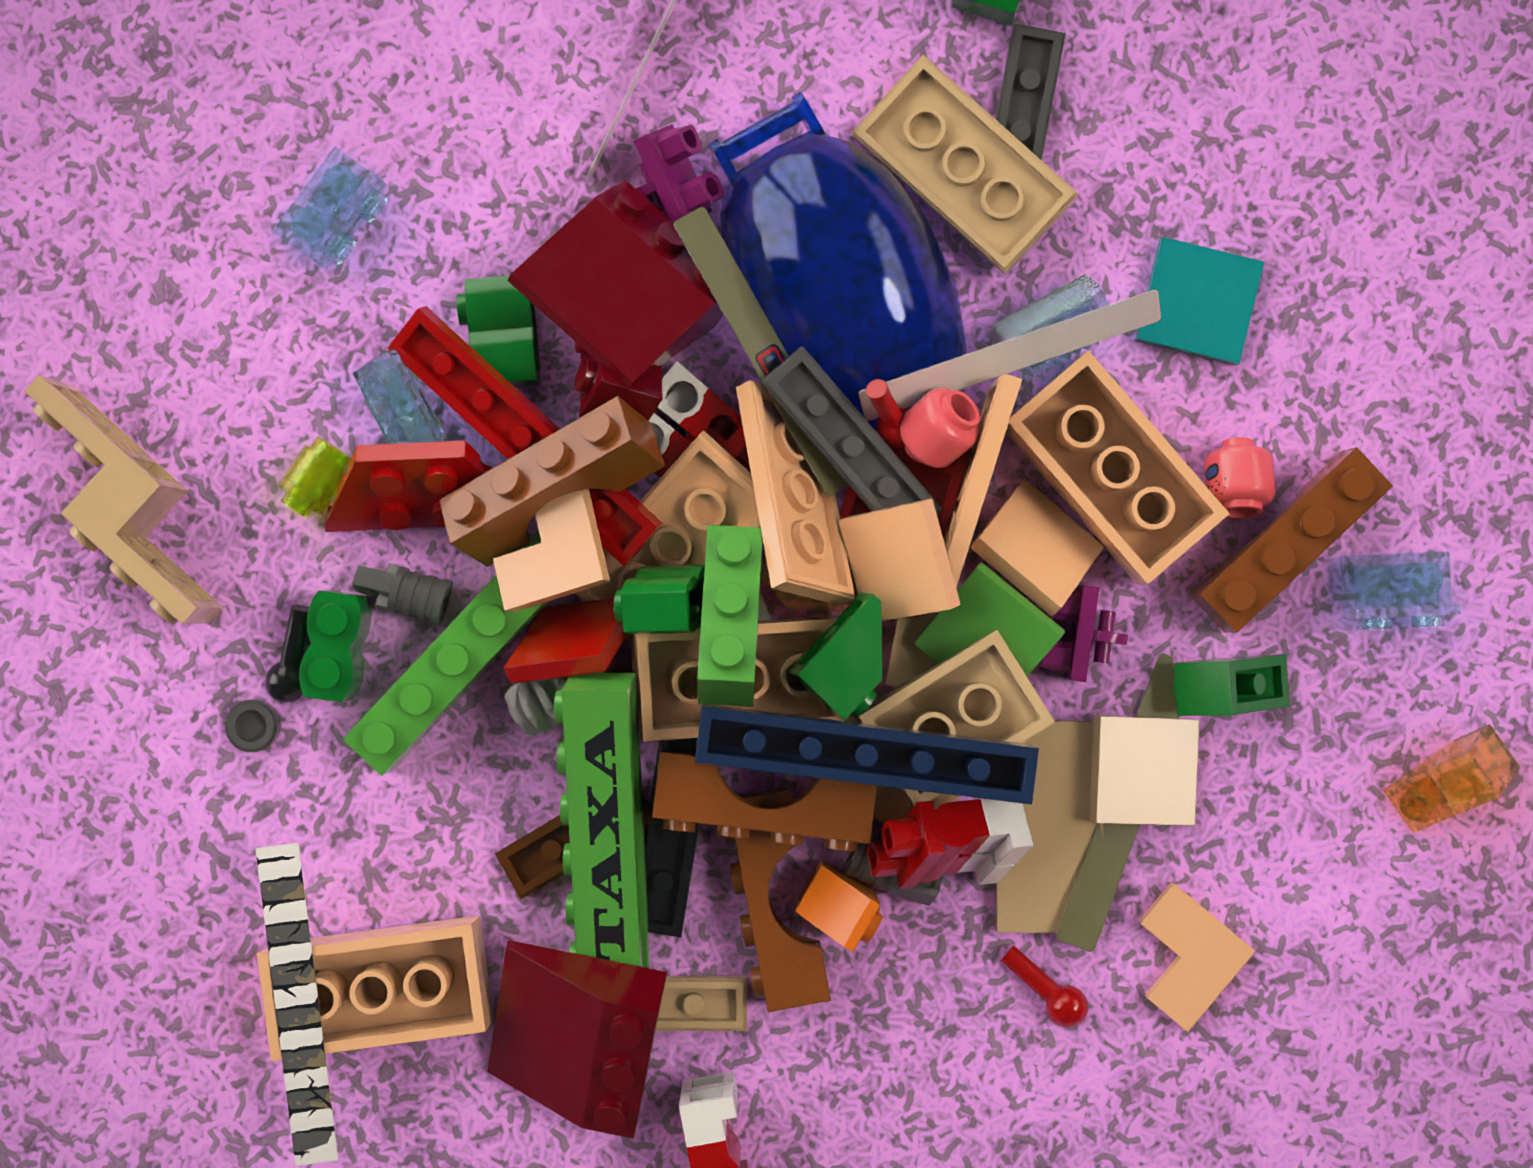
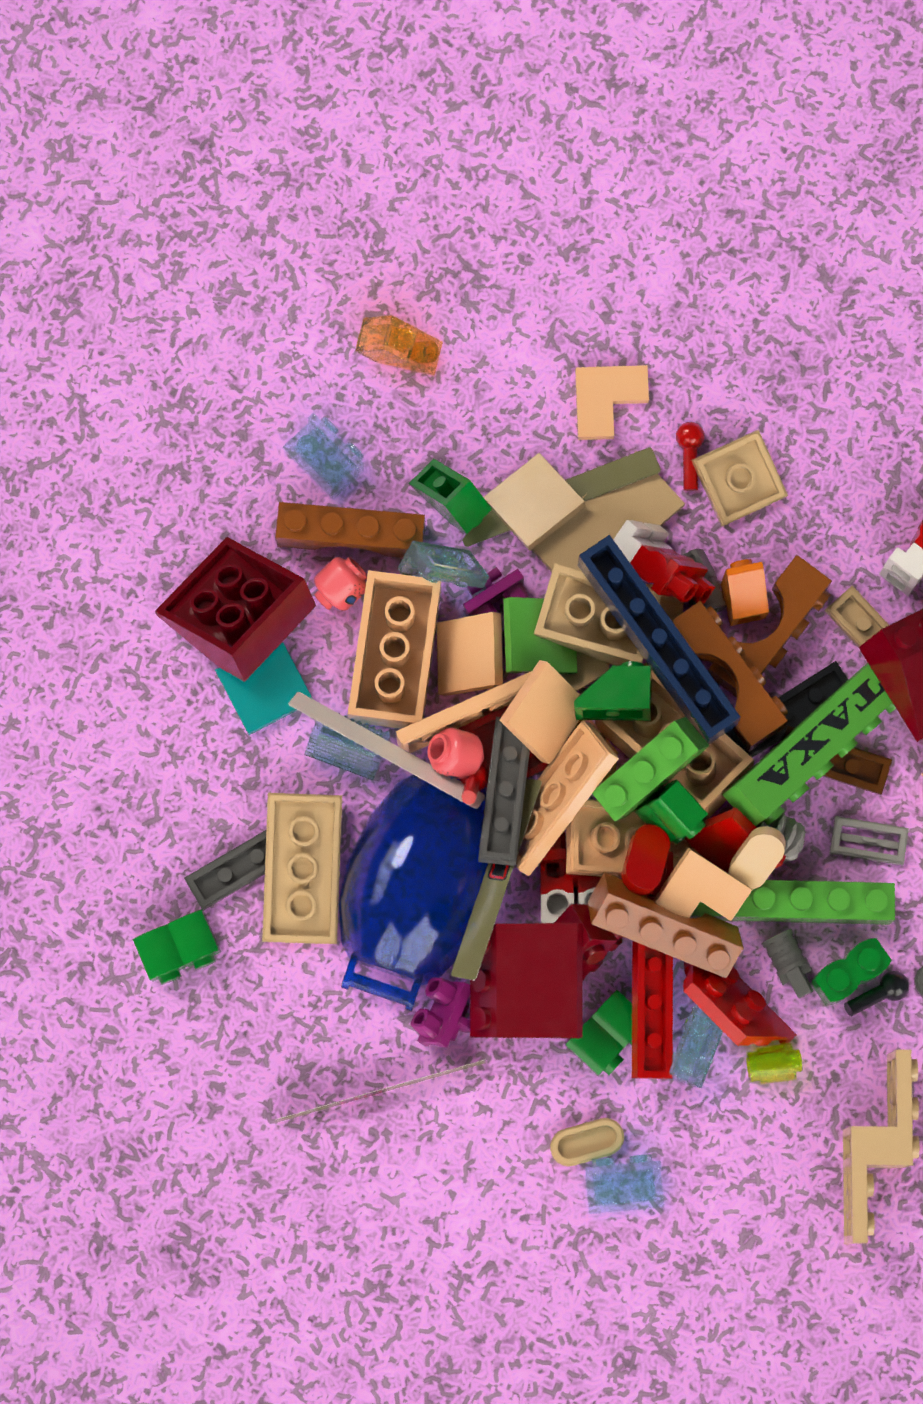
camera: 130 degrees left, 10 degrees down
(411, 212) = (587, 1142): none -> tan tile
(494, 766) = (837, 836): none -> light grey tile
(532, 648) = (758, 856): none -> tan tile
(637, 523) = (645, 859): none -> red tile
(972, 1018) = (739, 478): none -> tan tile
(1161, 602) = (443, 564): none -> clear light blue bracket
(1312, 341) = (237, 607): none -> dark red slope

